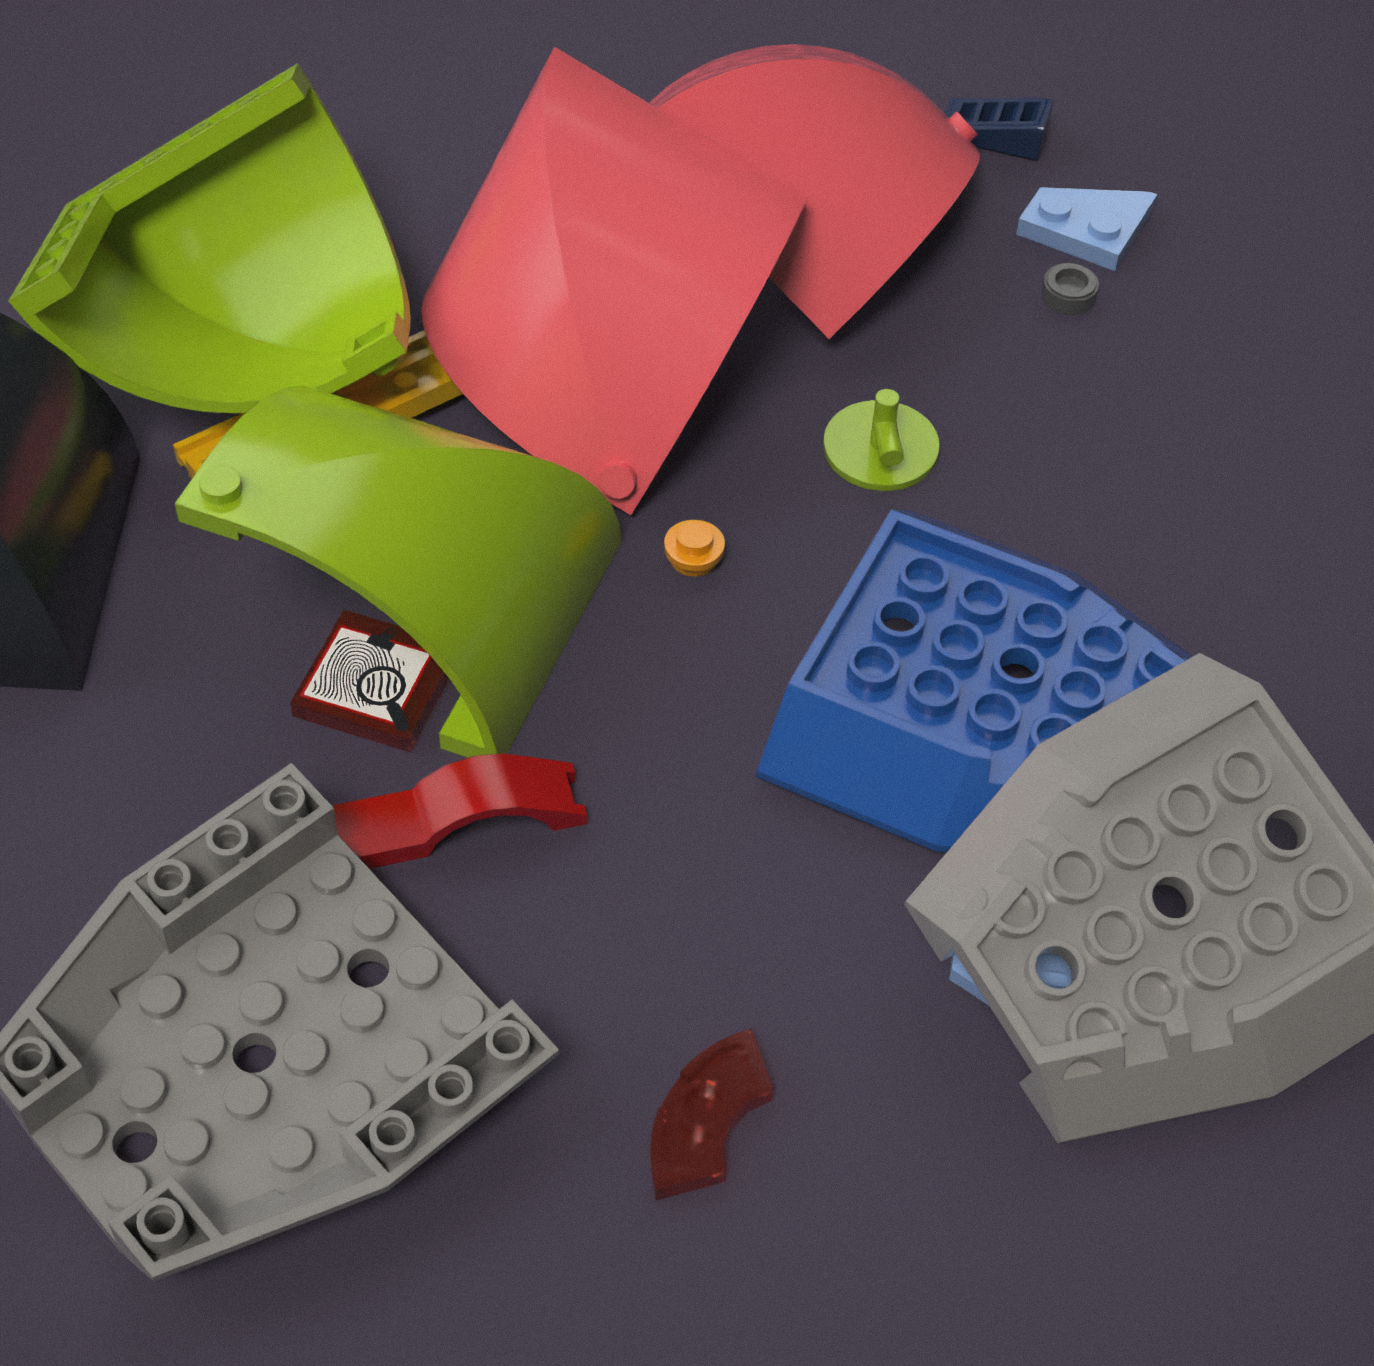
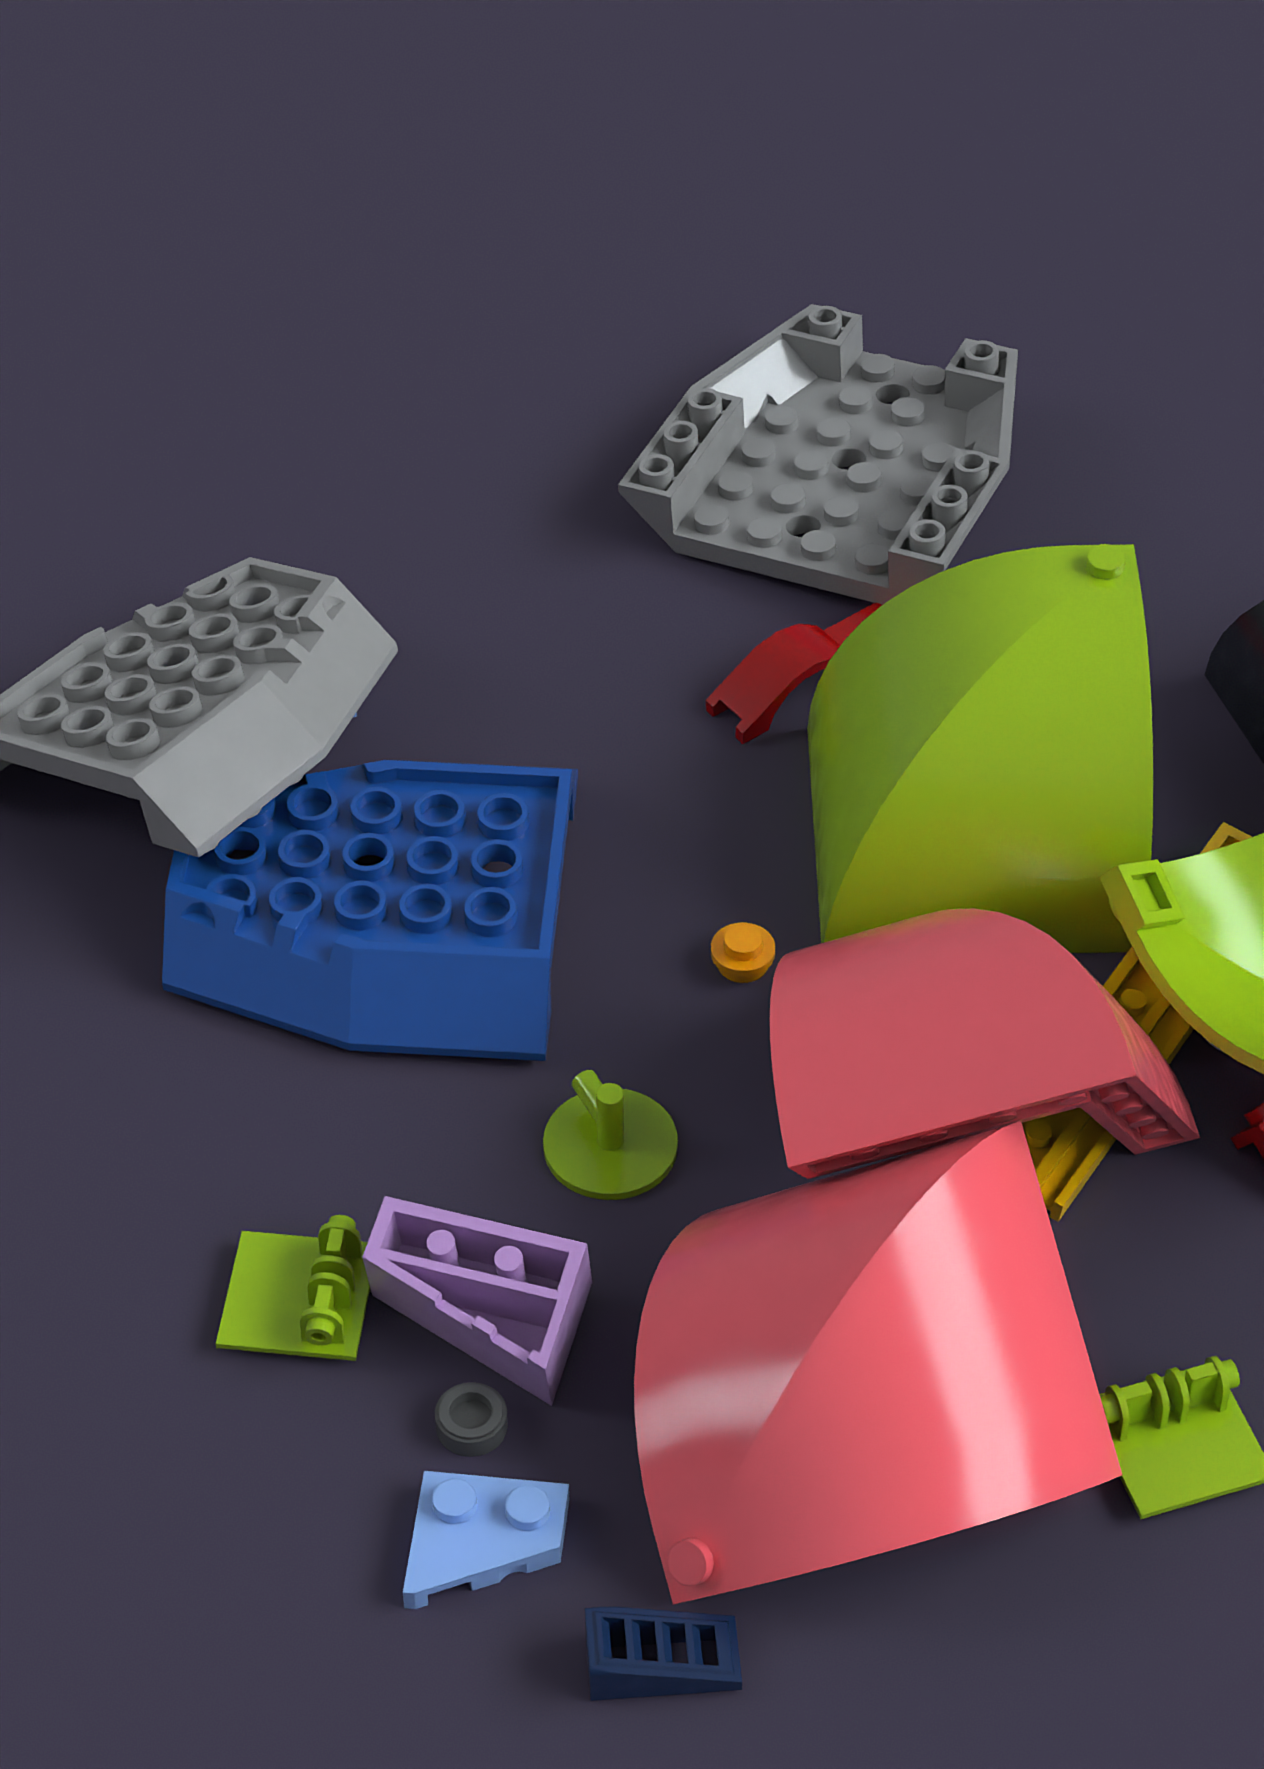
camera: 160 degrees right, 5 degrees down
(701, 1112) = (502, 545): clear red tile -> none
(1040, 329) = (483, 1287): none -> lavender wedge
(1175, 398) = (298, 1293): none -> lime hinge

